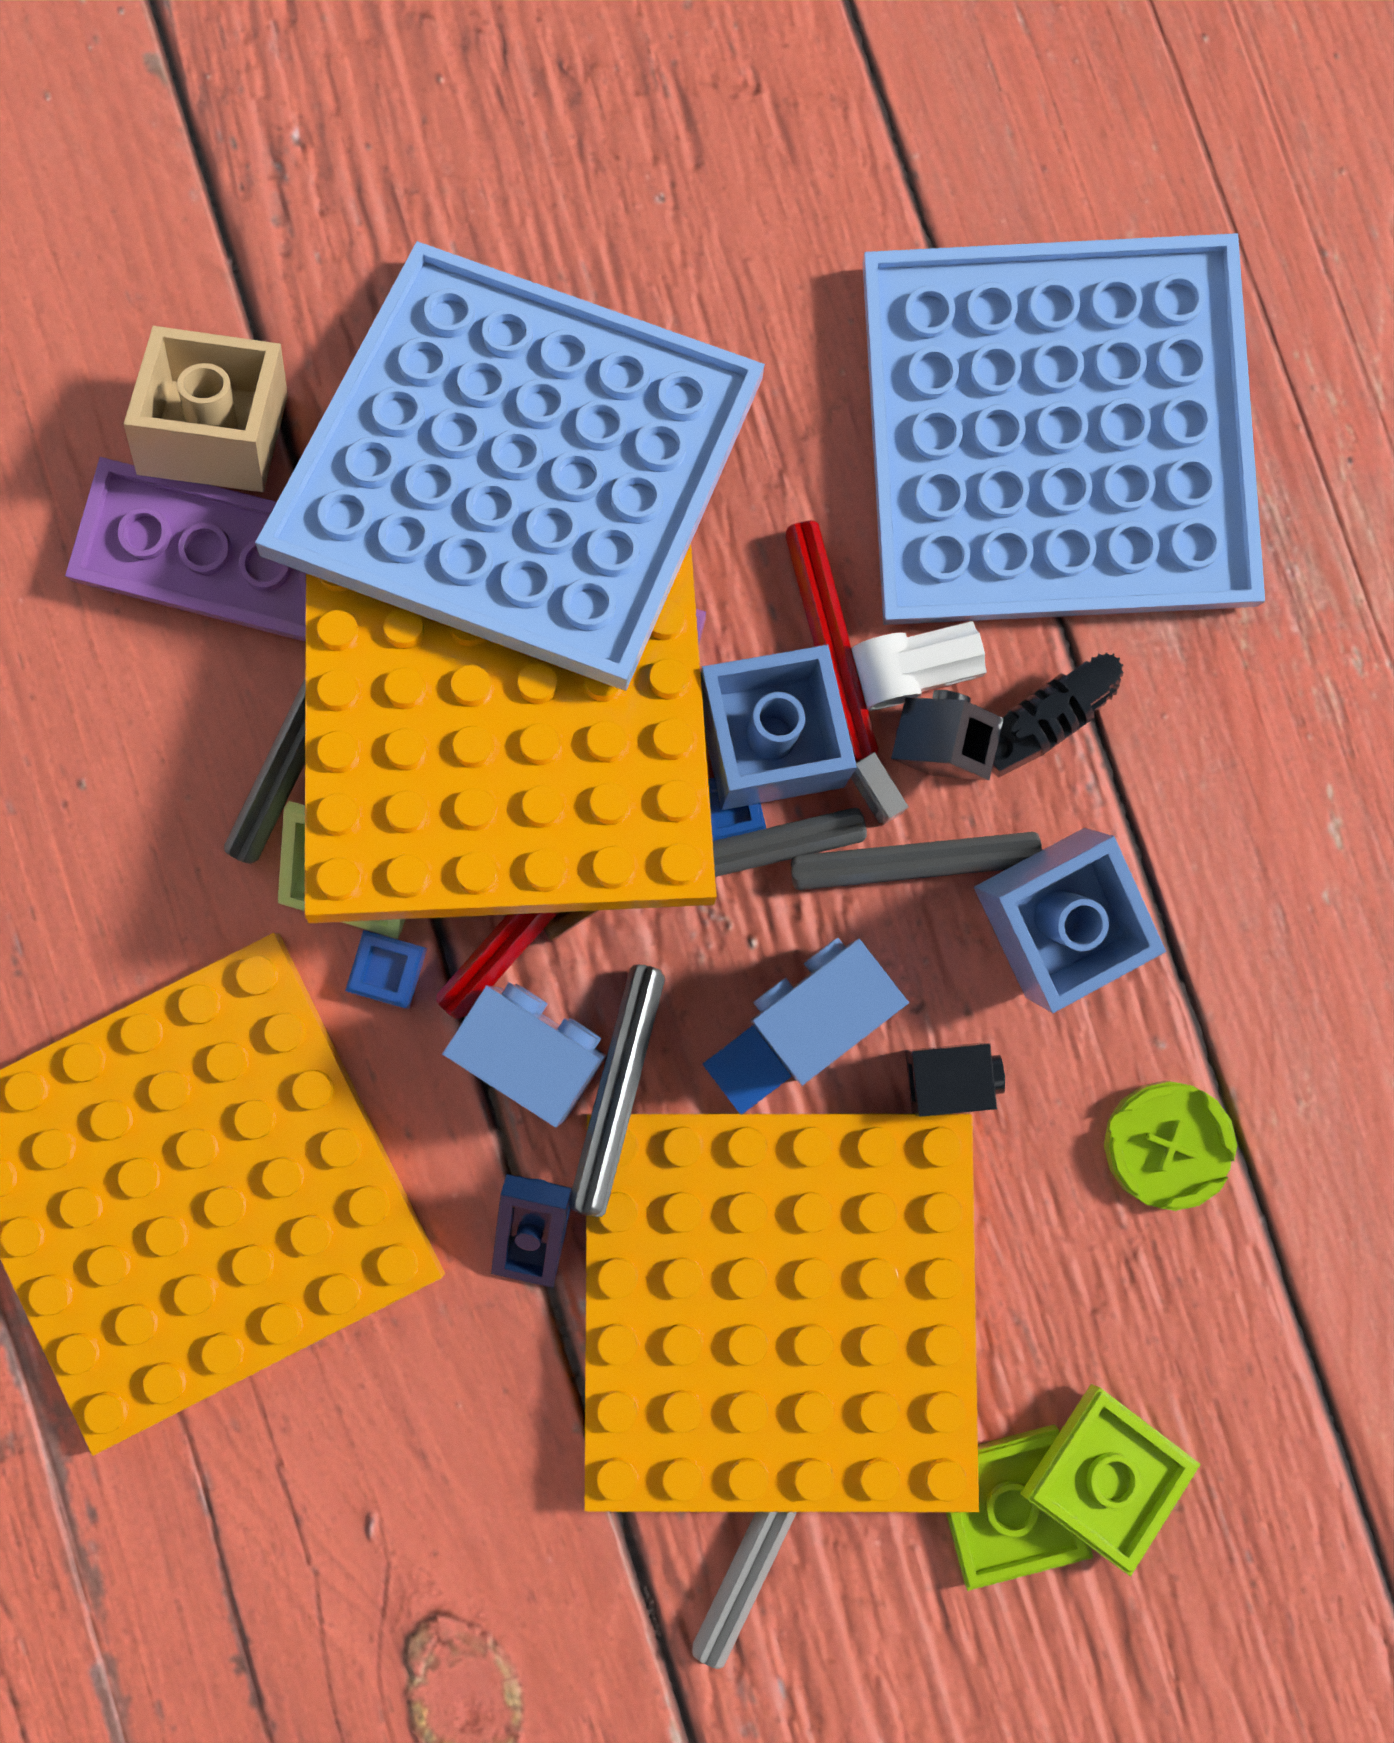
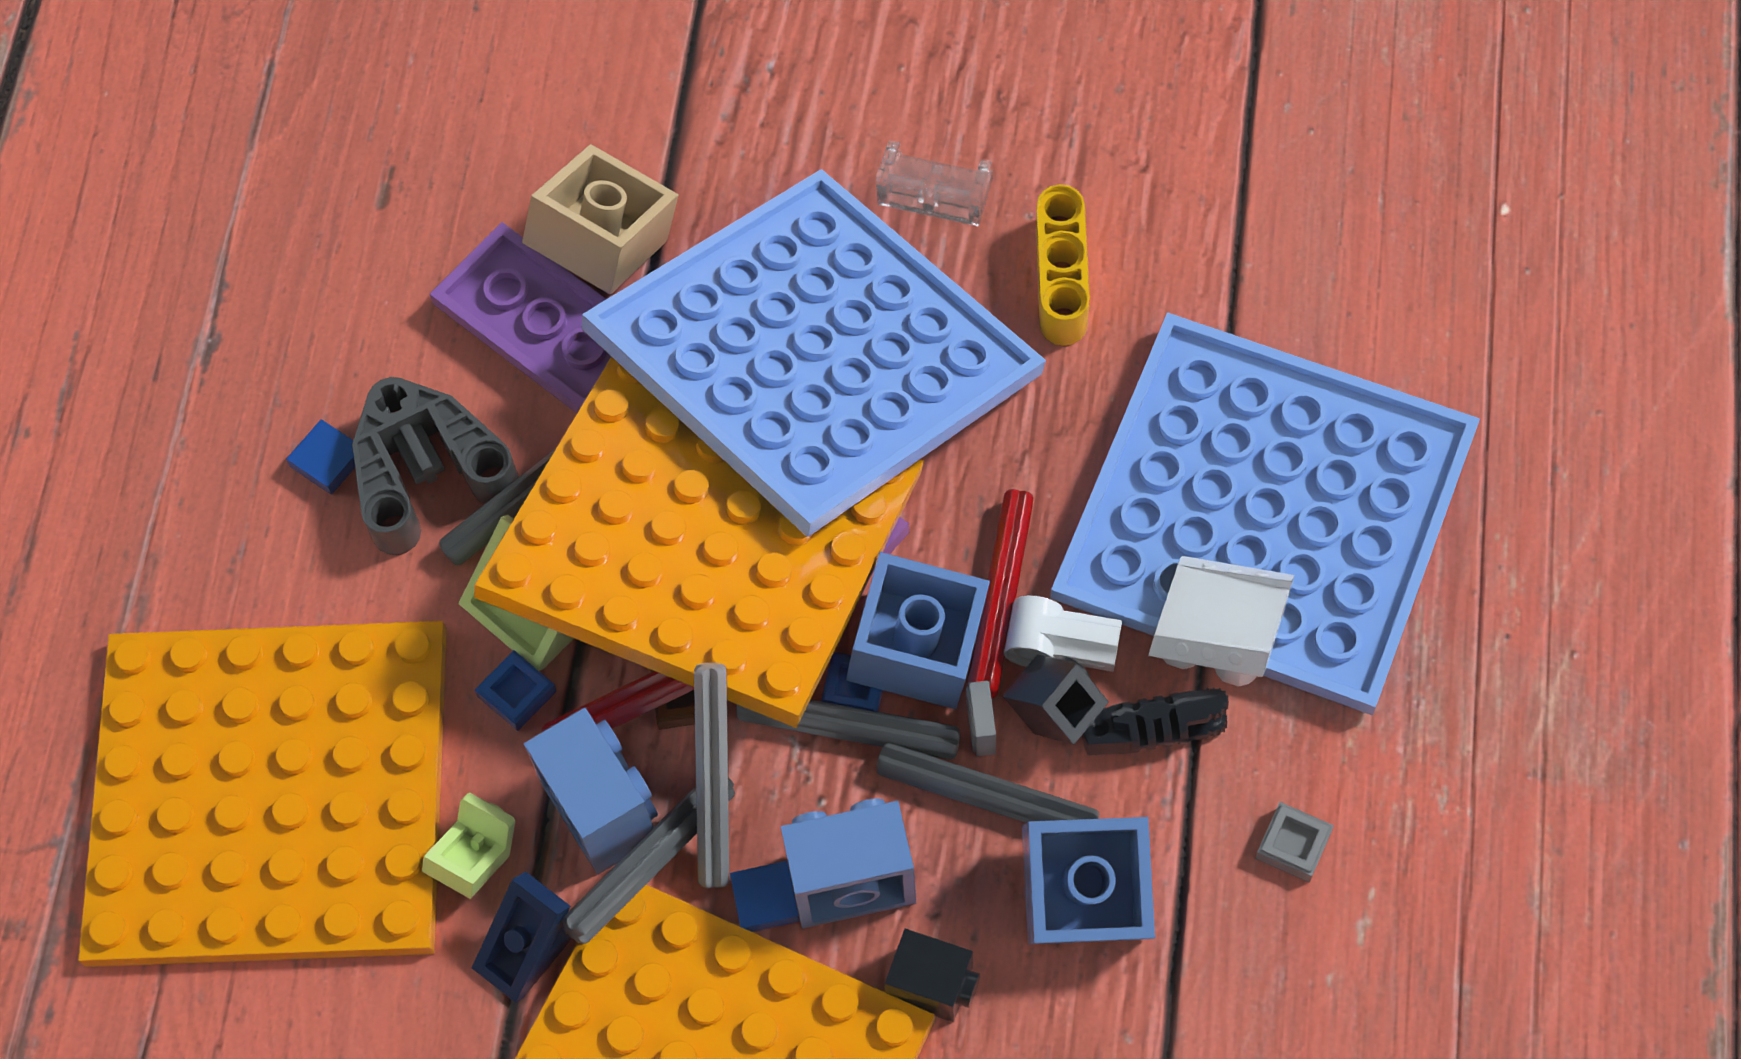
camera: 25 degrees right, 20 degrees down
(51, 805) = (324, 457): none -> blue tile
(120, 808) = (422, 414): none -> dark grey connector
(430, 1160) = (471, 847): none -> yellowish green bracket
(545, 208) = (932, 186): none -> clear hinge
(645, 984) = (711, 774): none -> light grey axle
(724, 215) = (1062, 243): none -> yellow beam
(1080, 576) = (1221, 618): none -> white slope
(1237, 774) = (1294, 842): none -> light grey tile

